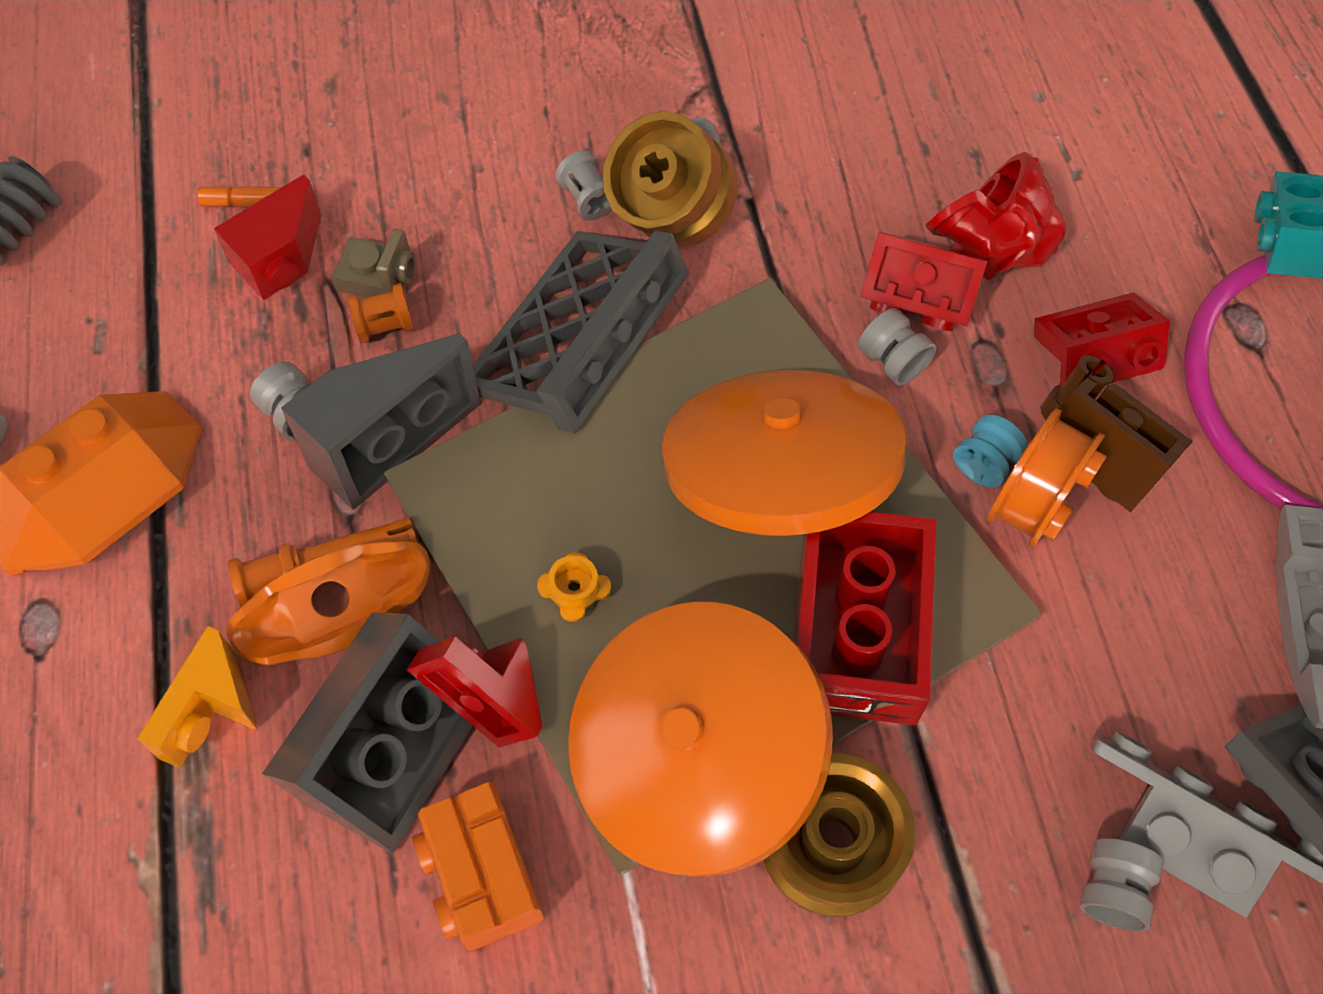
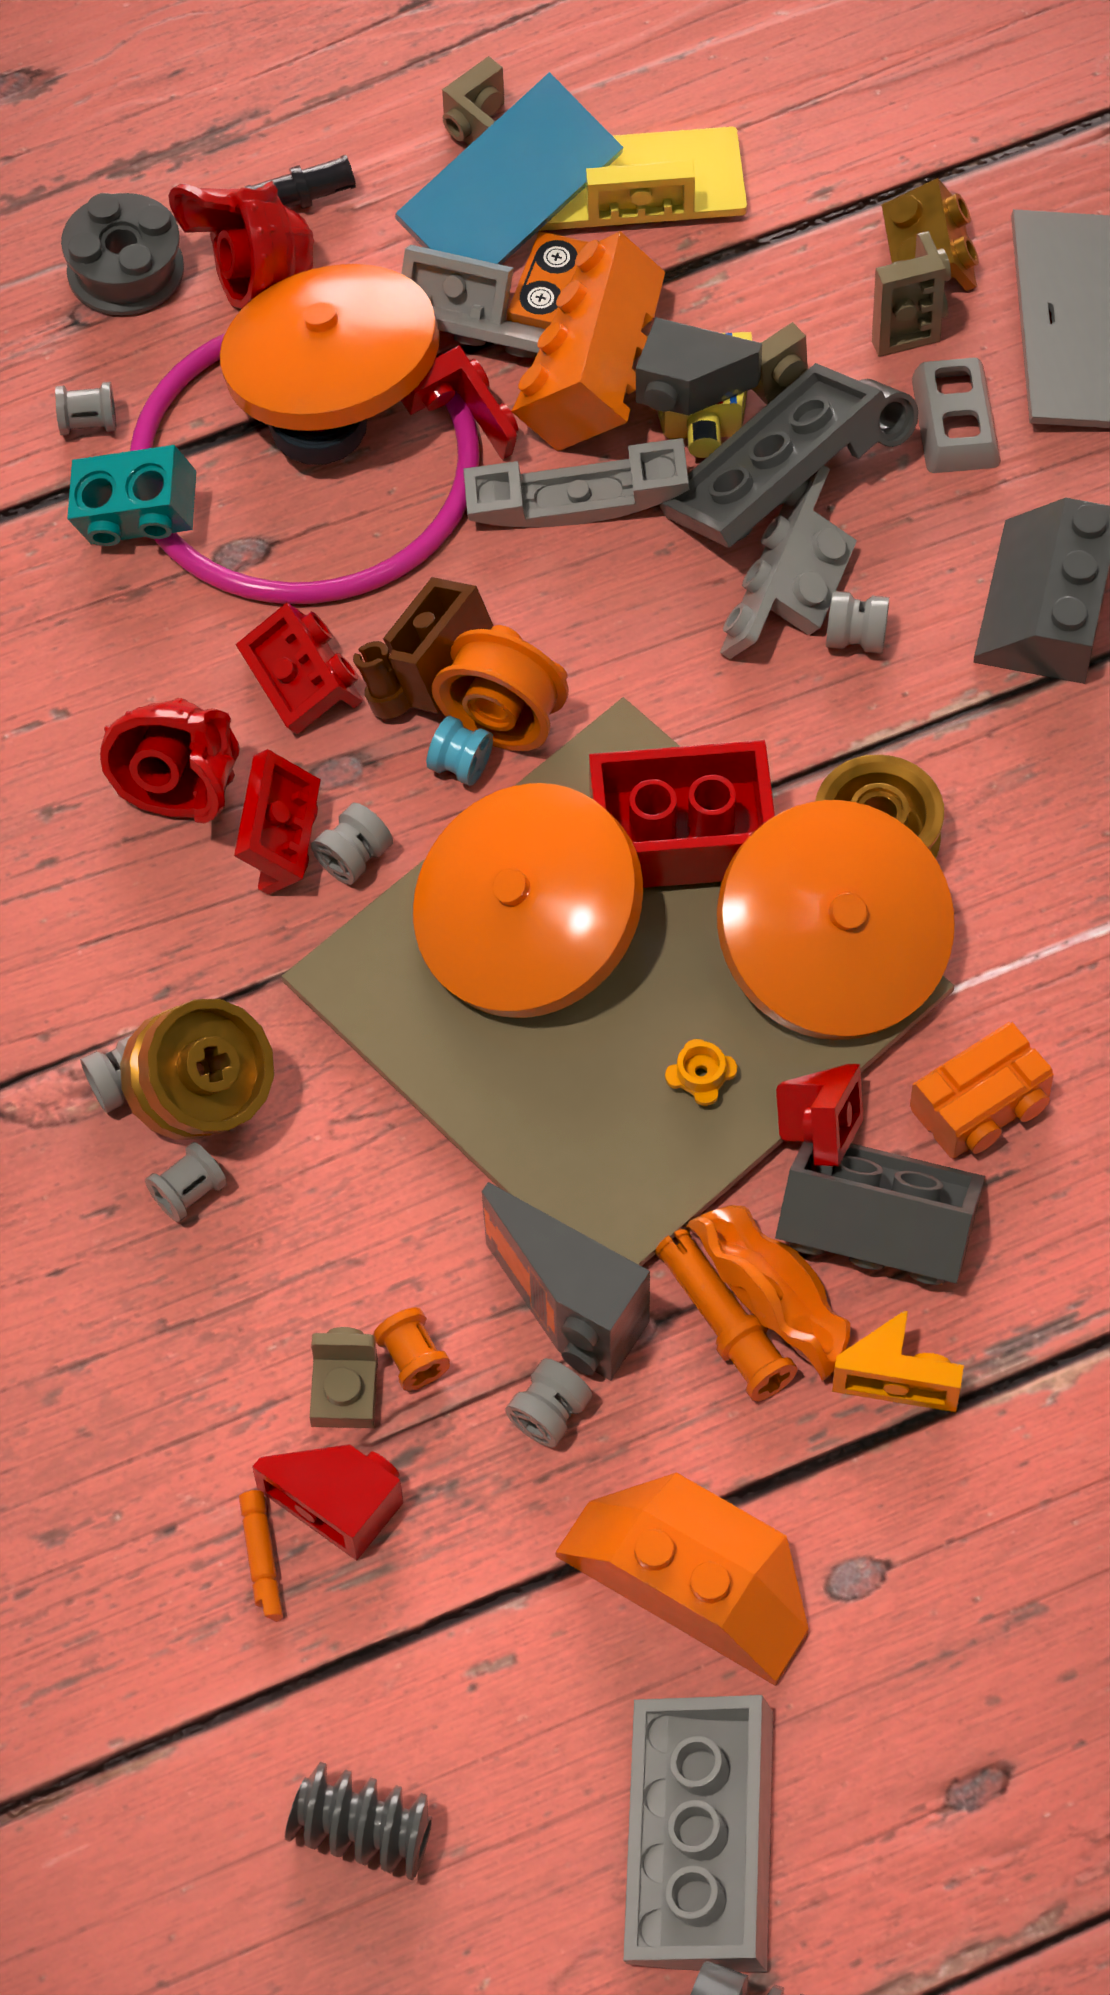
camera: 100 degrees left, 0 degrees up
(603, 337) = (396, 1094): dark grey fence -> none

